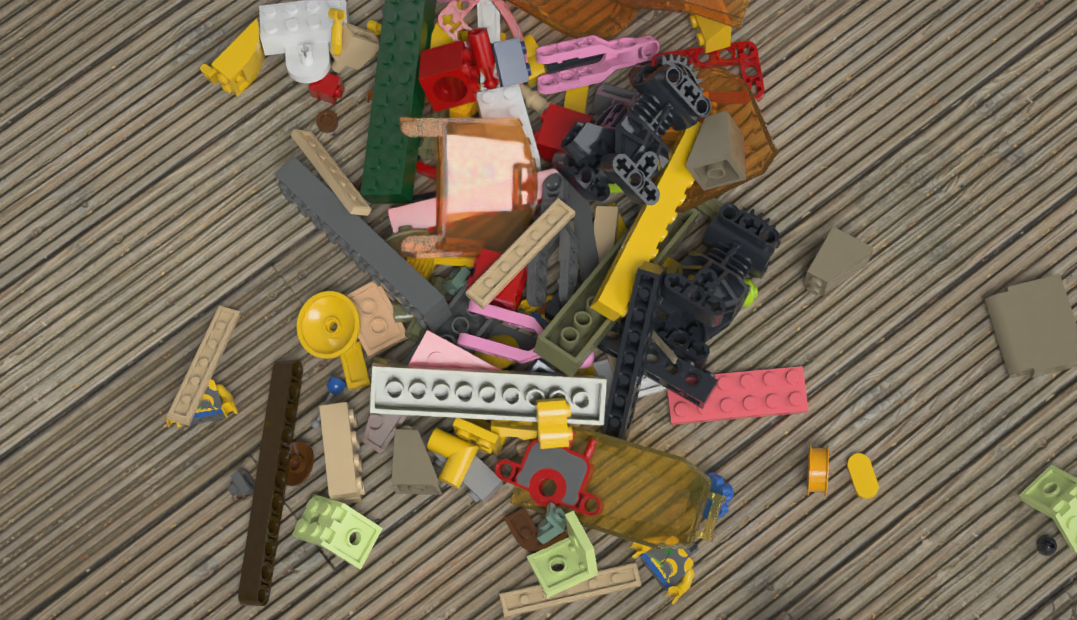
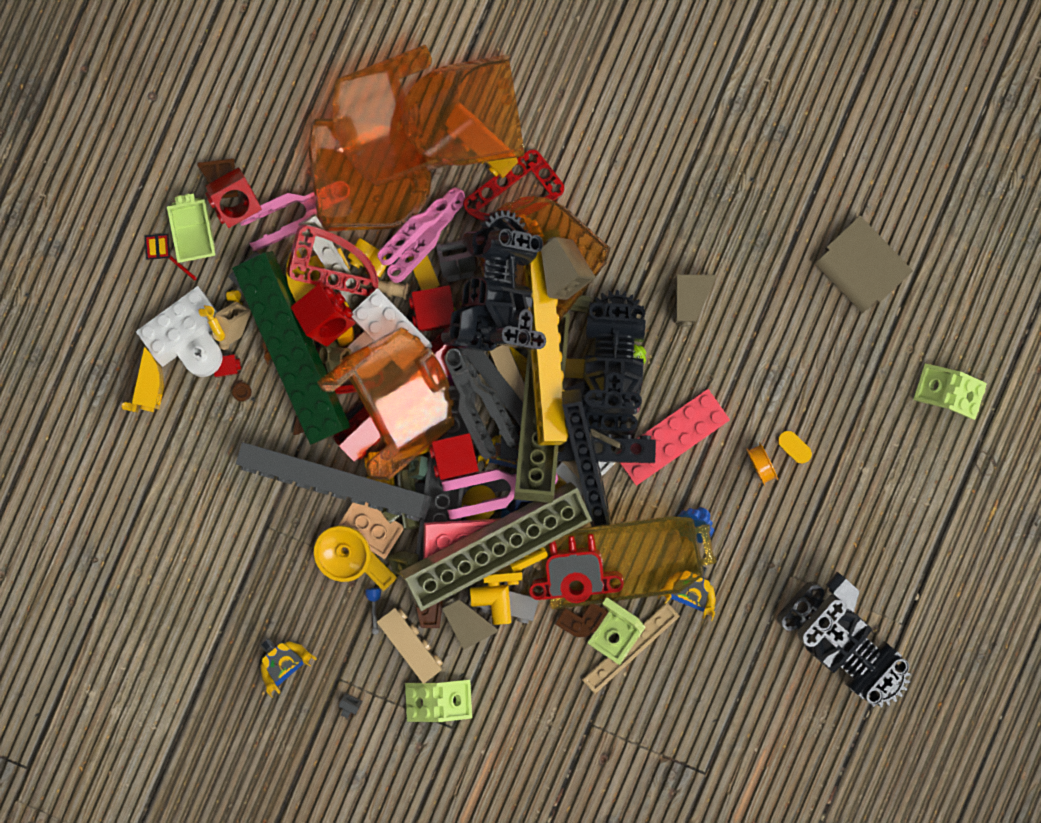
camera: 35 degrees left, 15 degrees up
(203, 365) = (268, 635): tan tile -> none
(270, 483) = (369, 692): dark brown beam -> none
(300, 463) = (380, 669): reddish brown dish -> none
(331, 172) = (275, 437): tan tile -> none
(395, 239) = (364, 456): olive dish -> none
(483, 56) = (340, 284): red wheel -> none
(511, 62) = (363, 276): brick -> none
(520, 253) = (462, 430): tan tile -> none
(552, 423) = (556, 542): yellow brick -> none
(552, 524) = (595, 612): sand green bracket -> none
(1044, 549) = (952, 430): black hinge -> none

